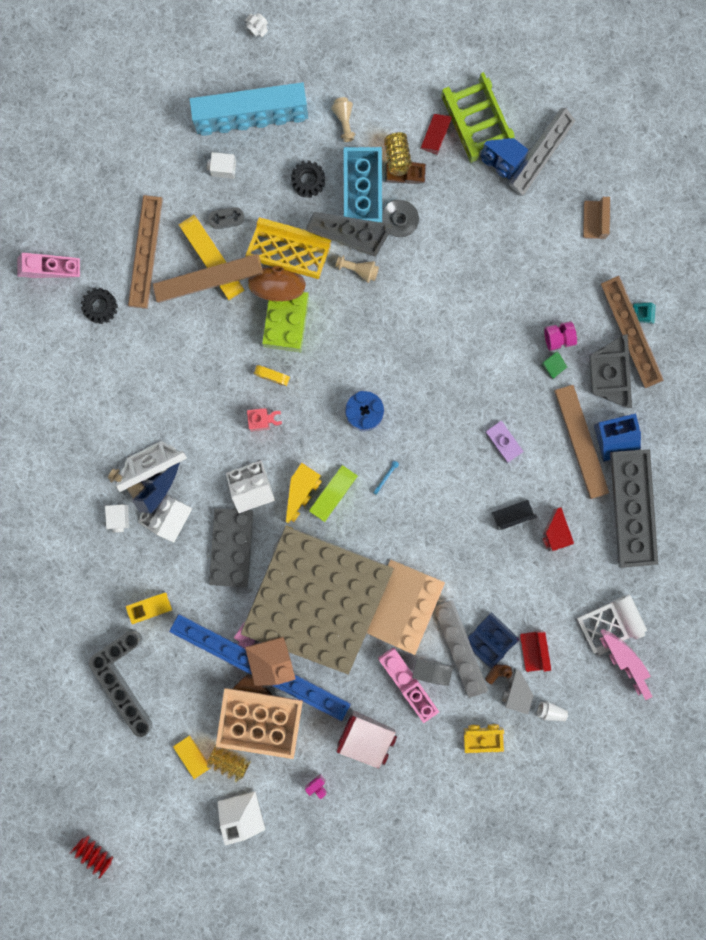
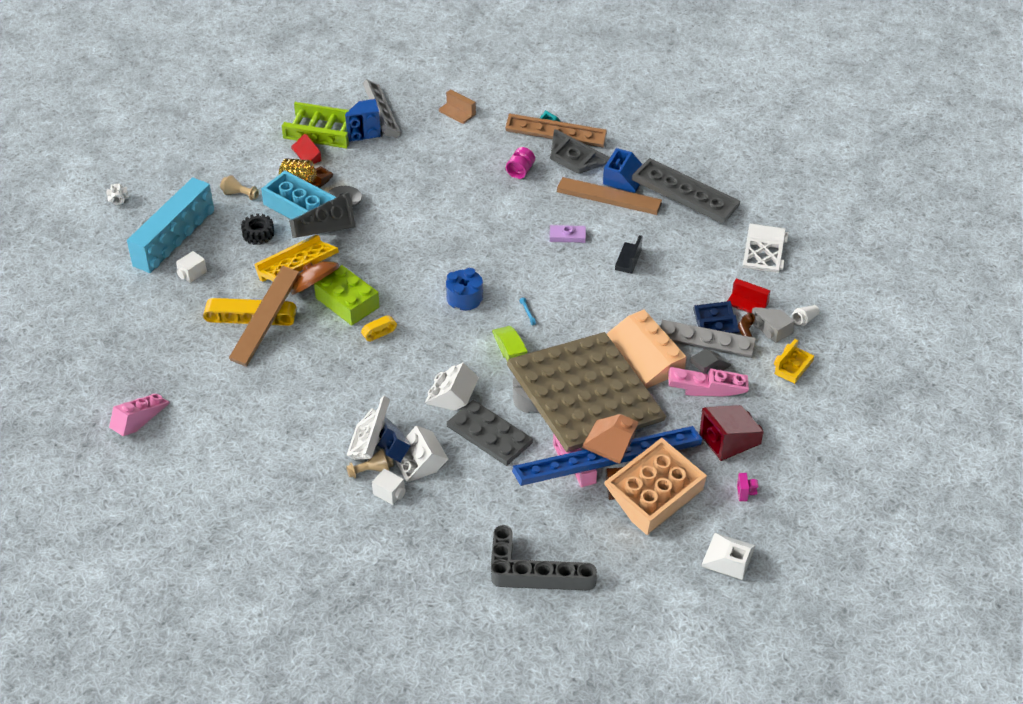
camera: 55 degrees left, 40 degrees down
(92, 856) = (675, 682): red piece -> none
(94, 295) = (208, 407): black tyre -> none
(145, 252) = (199, 351): medium nougat tile -> none
(148, 608) = (485, 511): yellow slope -> none
(191, 756) = (645, 561): yellow tile -> none
(227, 222) = (228, 288): dark grey beam -> none
(228, 764) = (672, 532): clear yellow piece -> none
(259, 419) = (406, 351): coral brick -> none
(301, 485) = (484, 359): yellow slope -> none
(366, 270) = (361, 234): tan piece -> none
(554, 365) = (538, 180): green slope -> none
(557, 532) = (664, 238): red slope -> none
(627, 660) = (795, 247): bright pink slope -> none

